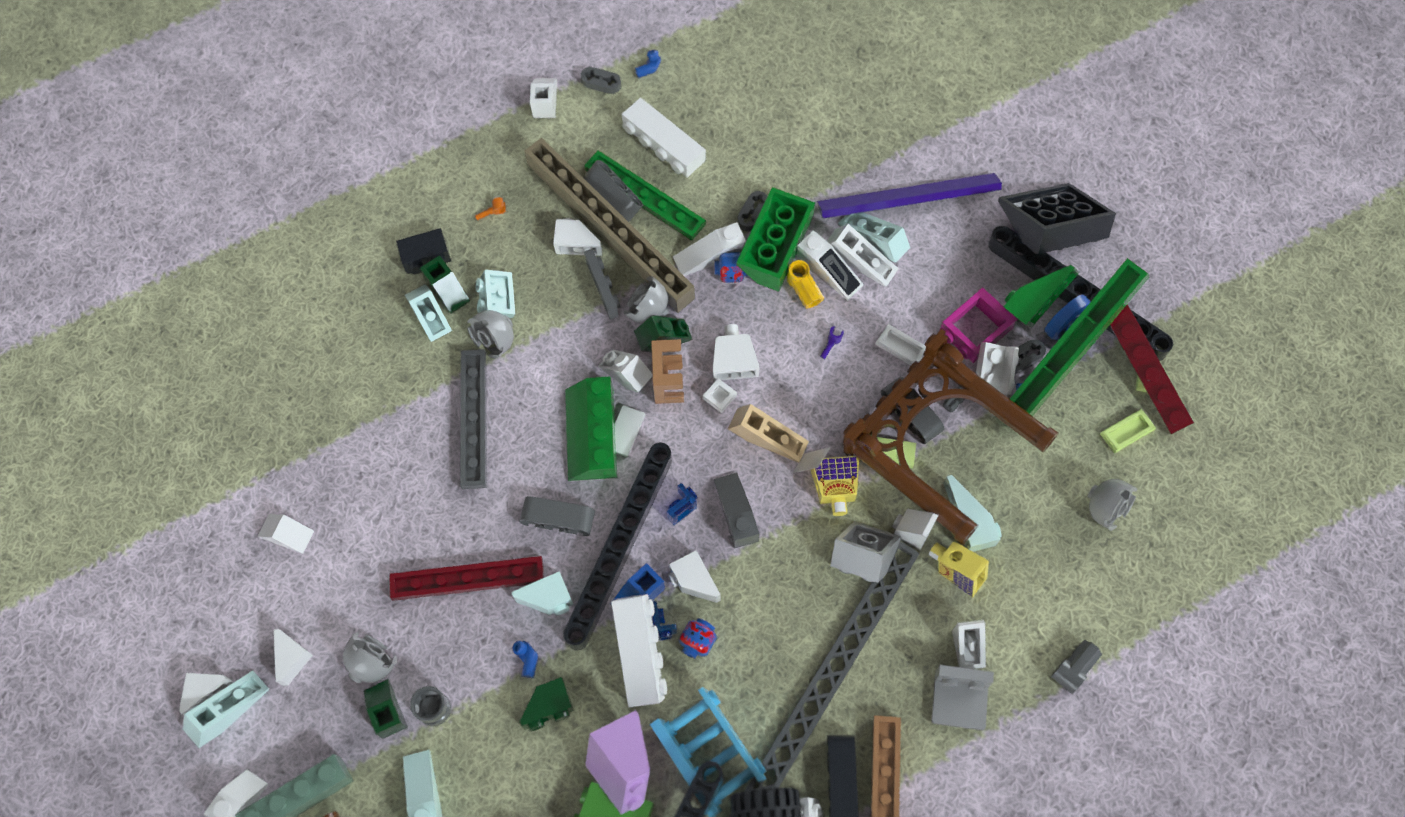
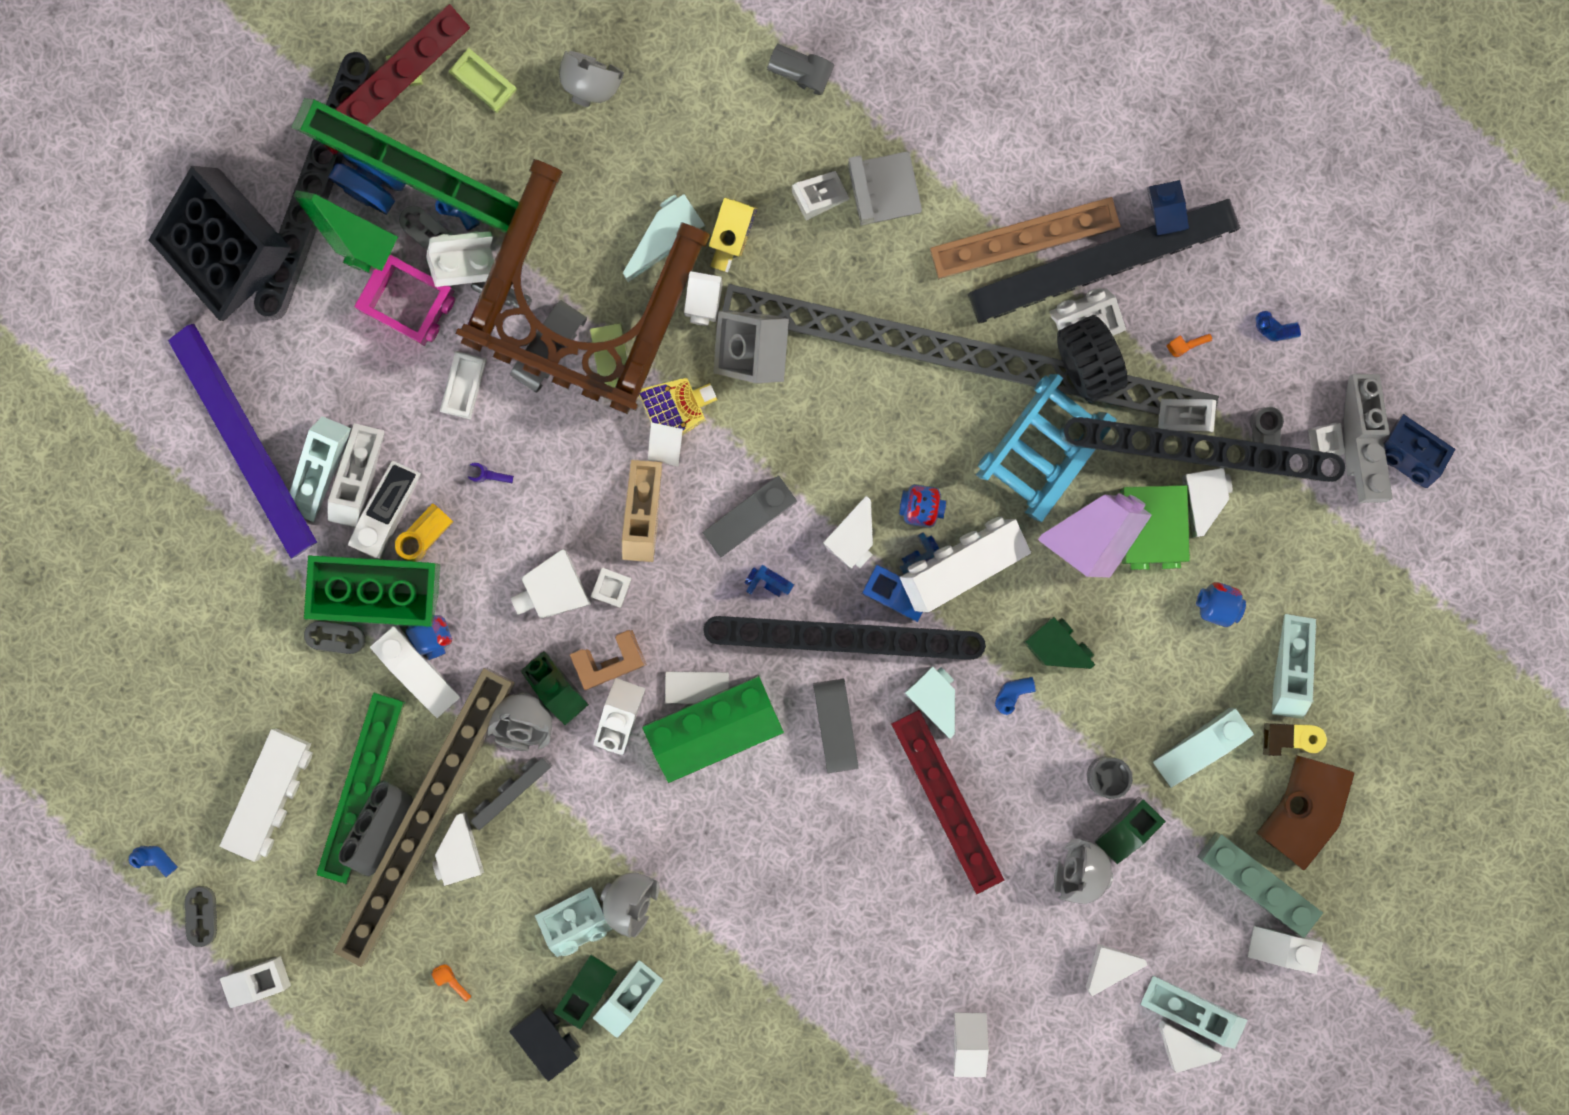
camera: 115 degrees left, 20 degrees up
(473, 420) = (747, 880): dark grey plate -> none

